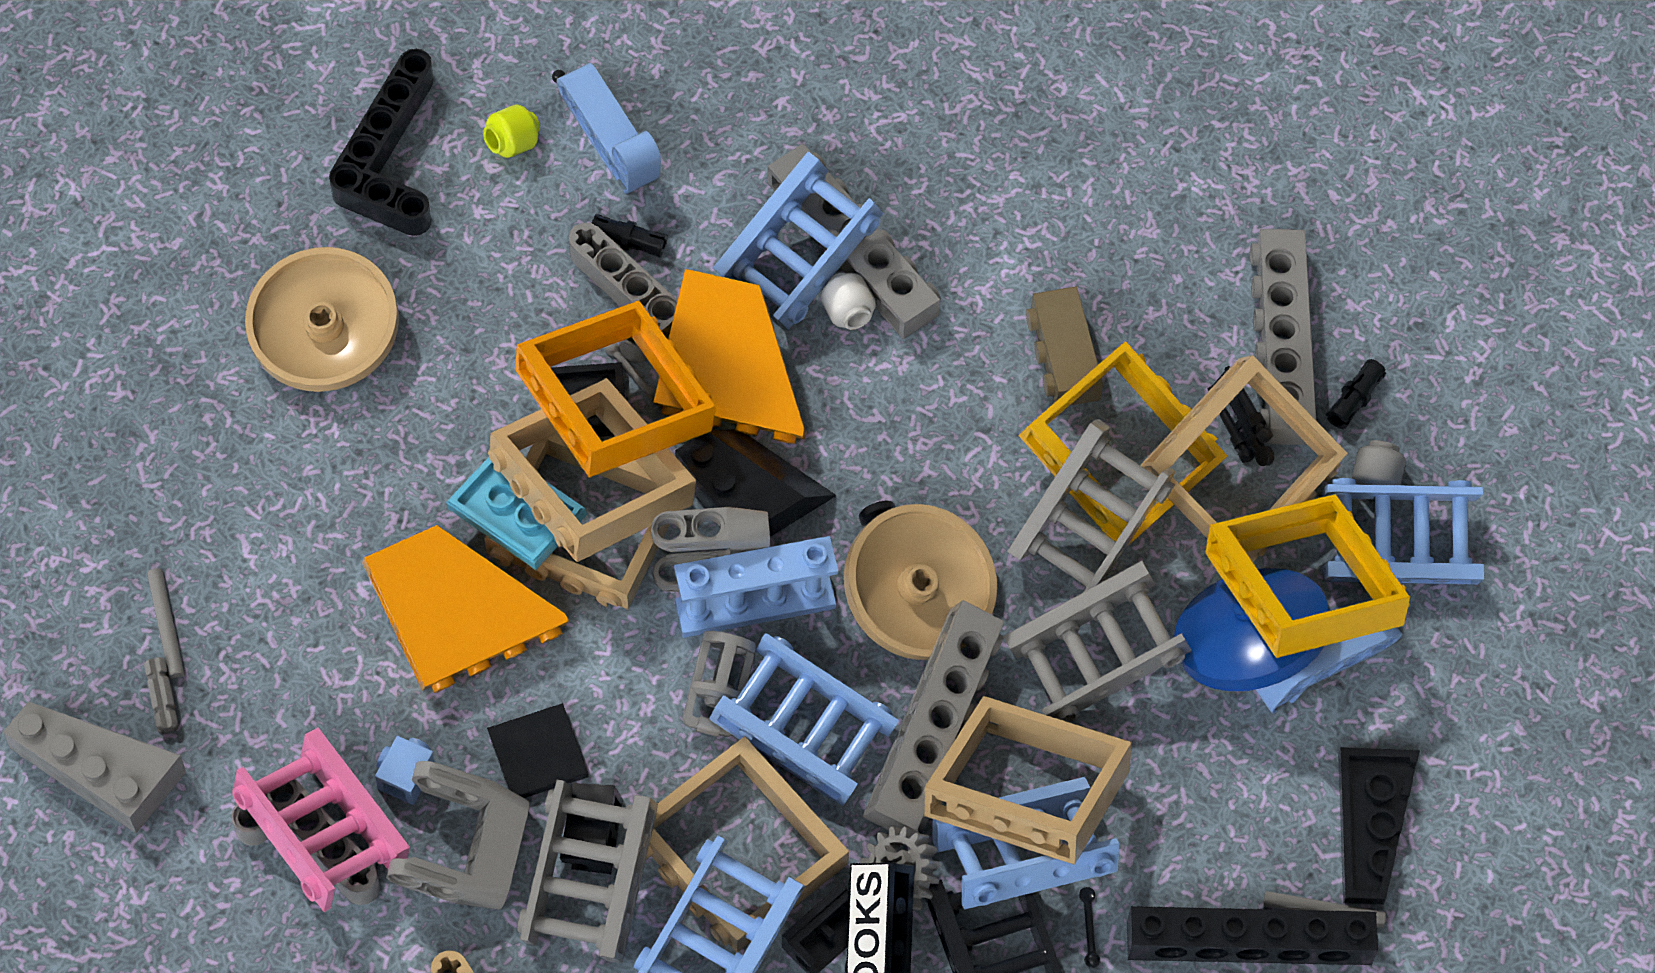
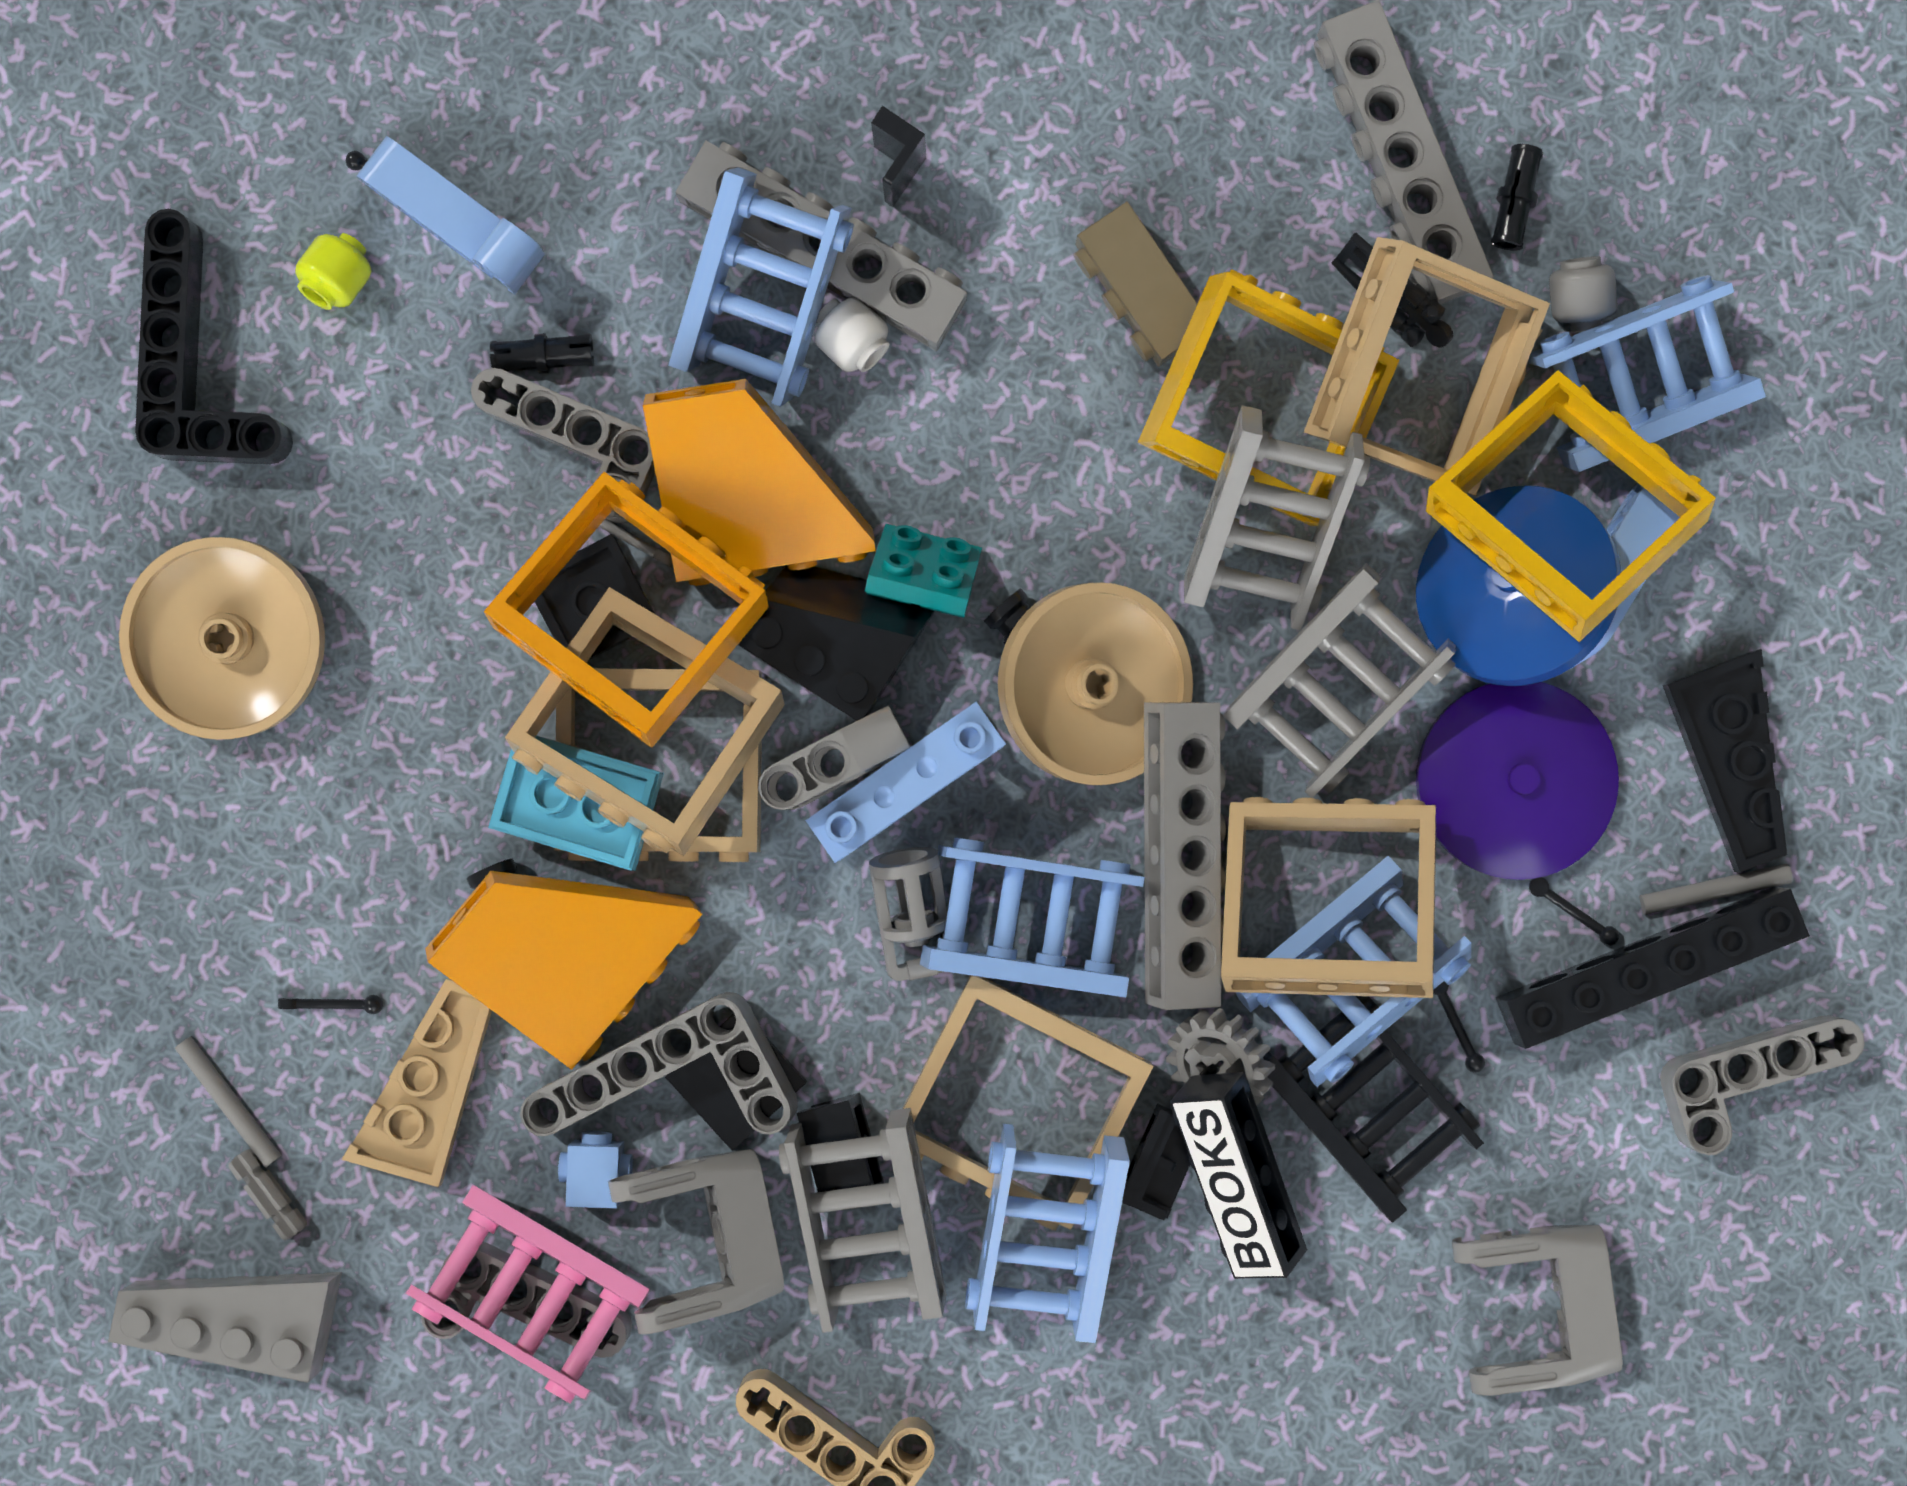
camera: 15 degrees left, 25 degrees up
(300, 599) = (372, 1004): none -> black hinge
(307, 675) = (423, 1102): none -> tan wing
(490, 712) = (663, 1059): none -> light grey beam
(820, 458) = (924, 570): none -> teal plate
(933, 199) = (903, 145): none -> black panel
(1191, 857) = (1540, 887): none -> black hinge
(1204, 775) = (1518, 779): none -> dark purple dish

